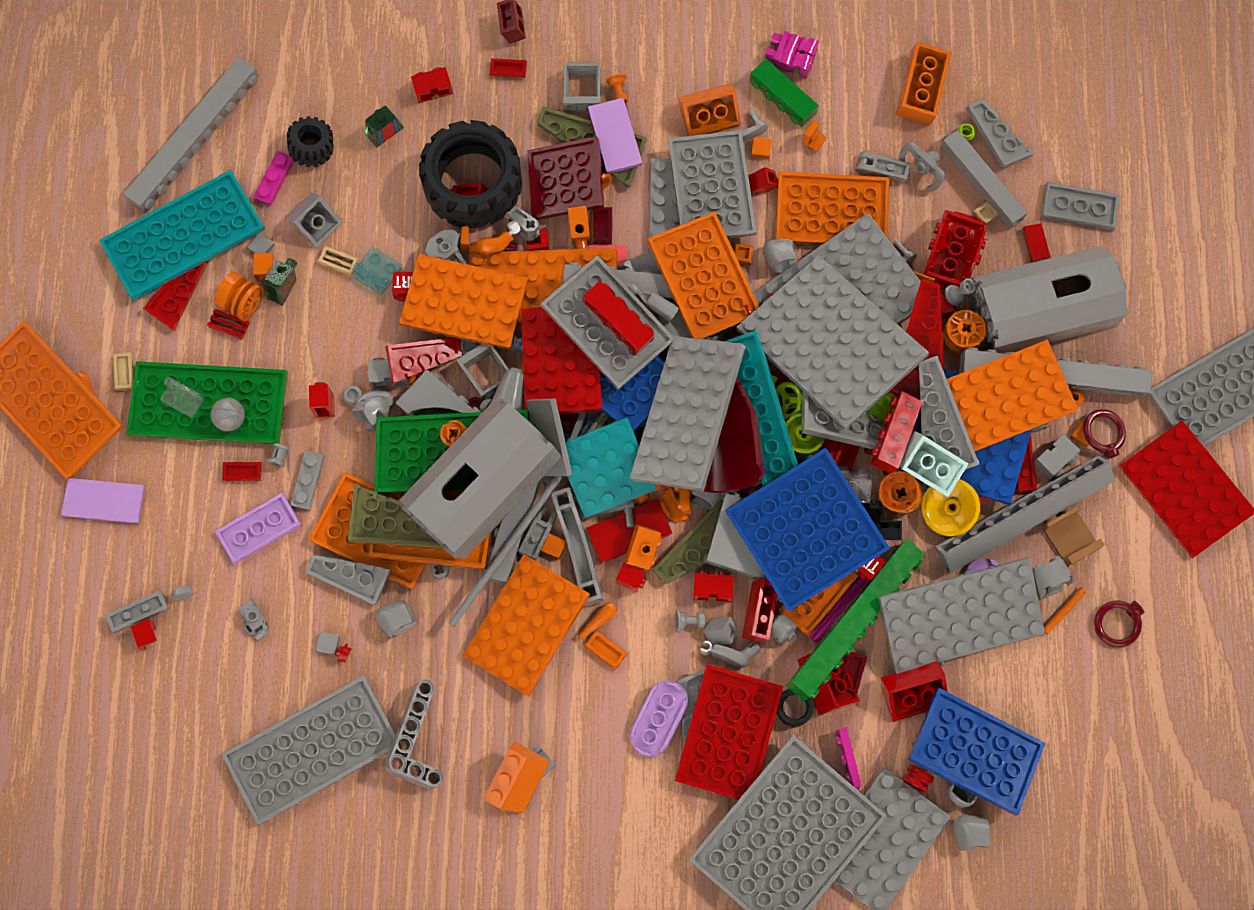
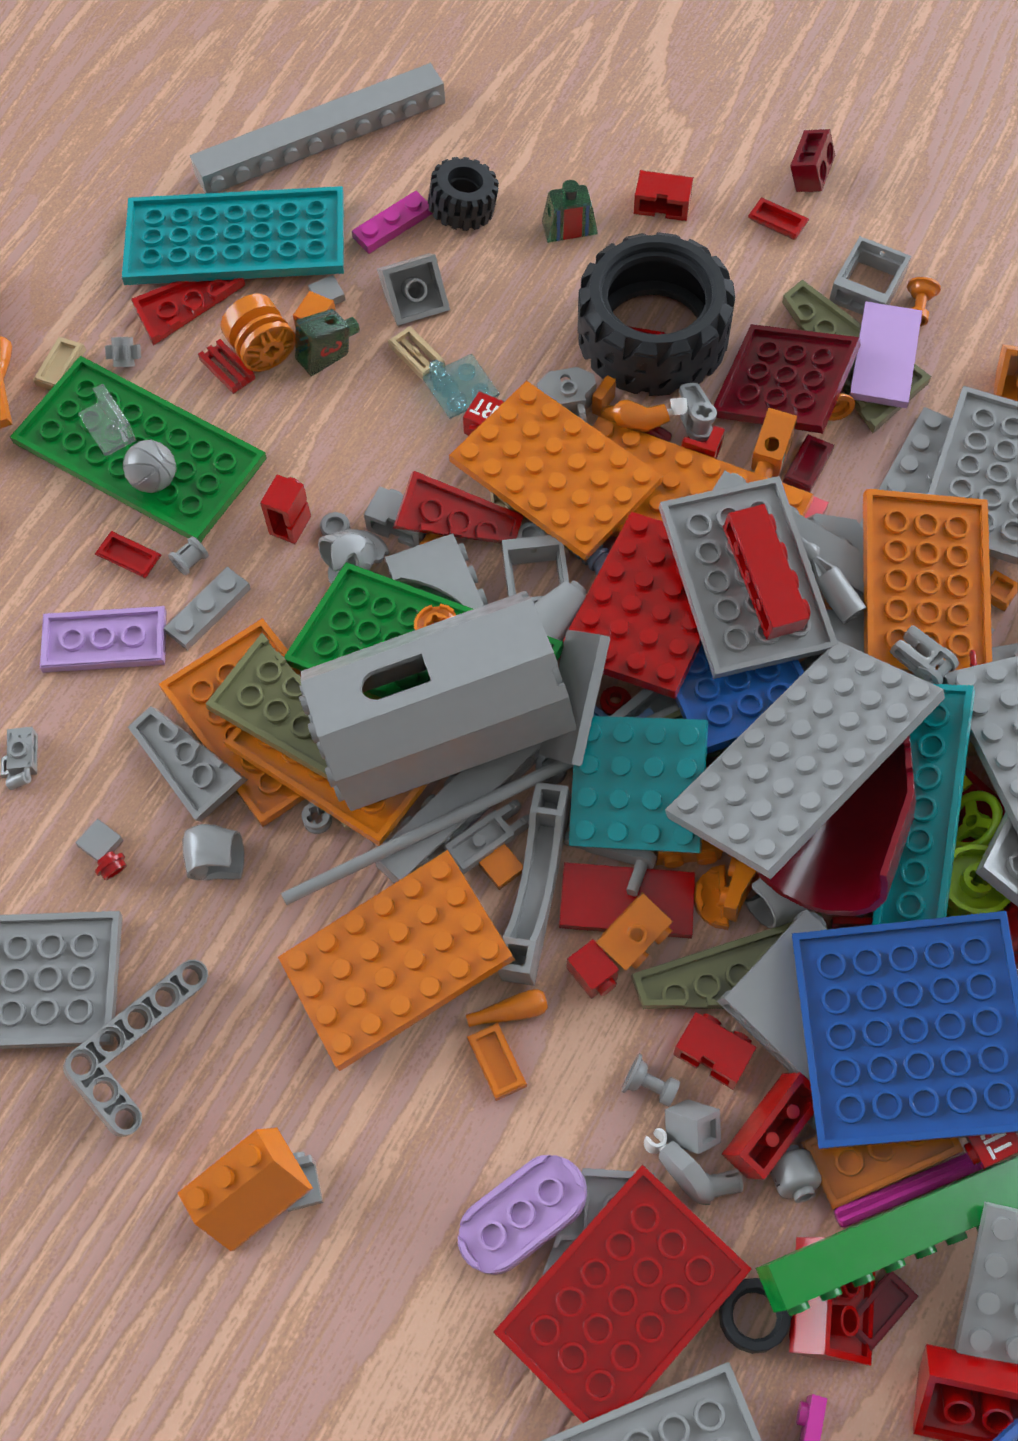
camera: 30 degrees right, 10 degrees down
(160, 346) = (123, 351): none -> light grey gear
(727, 318) = (924, 656): none -> light grey piece

